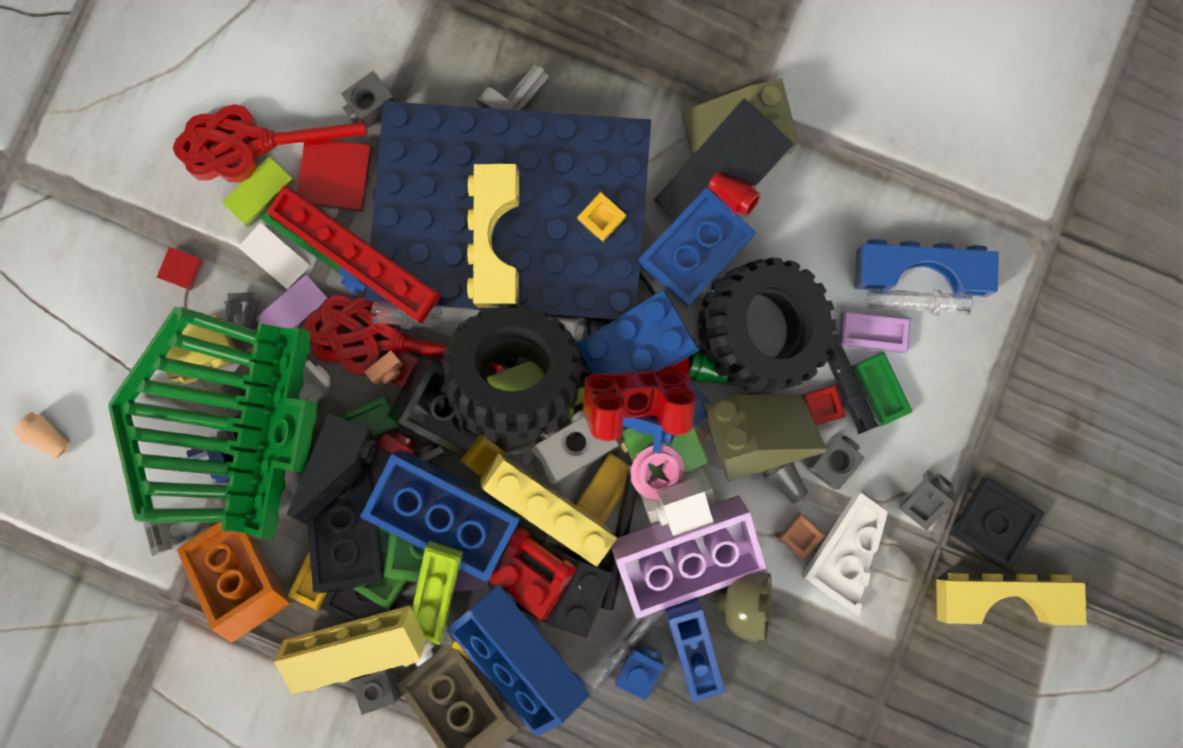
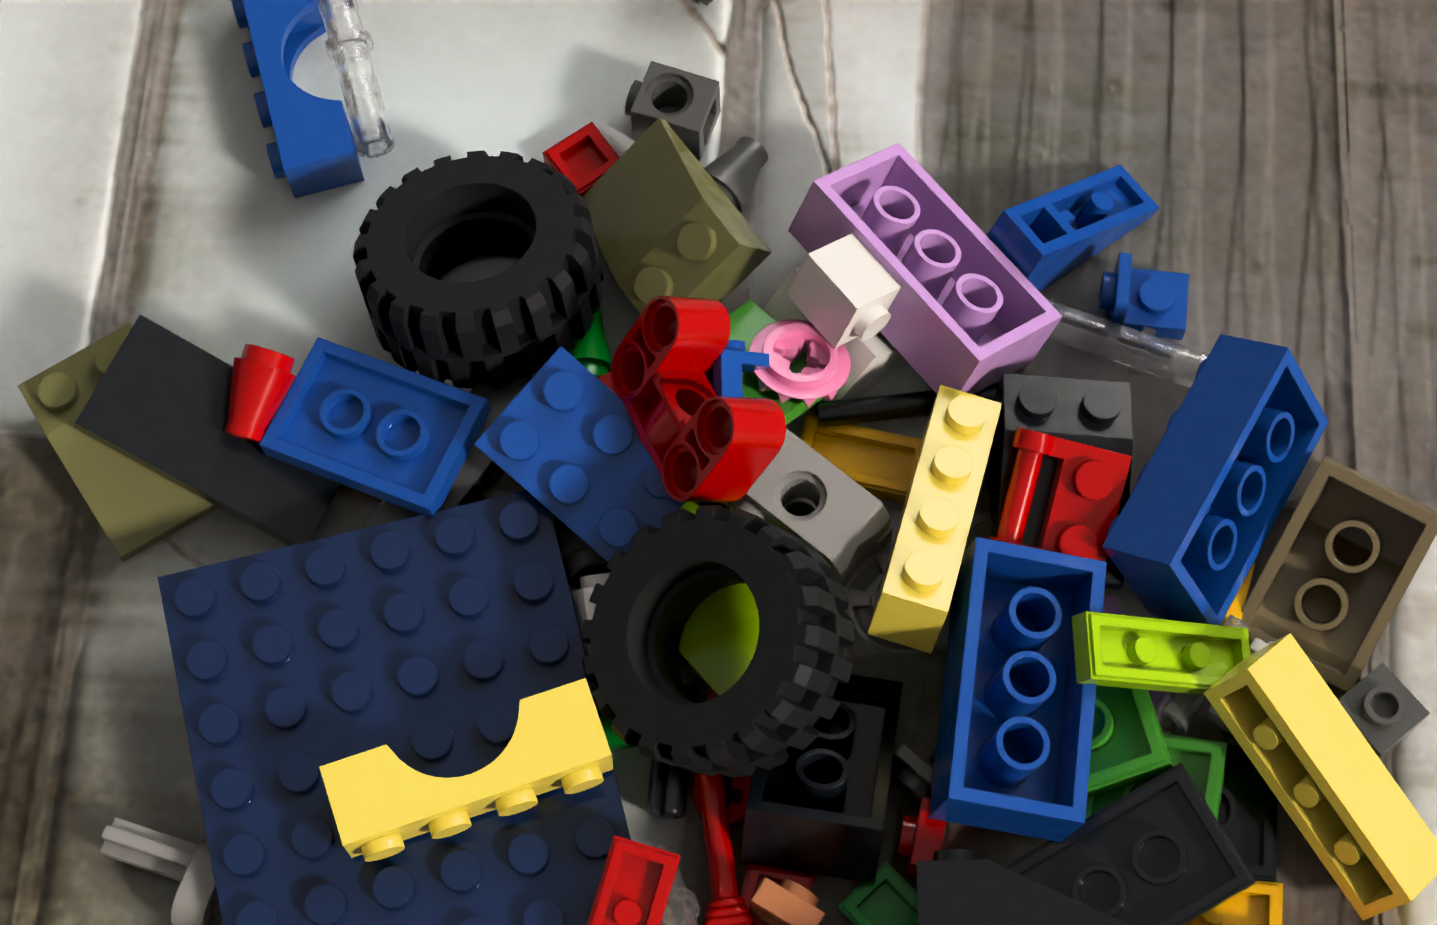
camera: 105 degrees left, 15 degrees down
(481, 455) = (885, 680): yellow tile -> none
(601, 217) = (372, 595): yellow tile -> none
(748, 606) = (969, 156): olive cylinder -> none
(801, 536) = (817, 130): nougat tile -> none
(846, 554) = (827, 55): white wing -> none
(850, 388) = (555, 116): black pin -> none
(875, 331) = (427, 116): lavender tile -> none
(883, 389) = (524, 85): green tile -> none

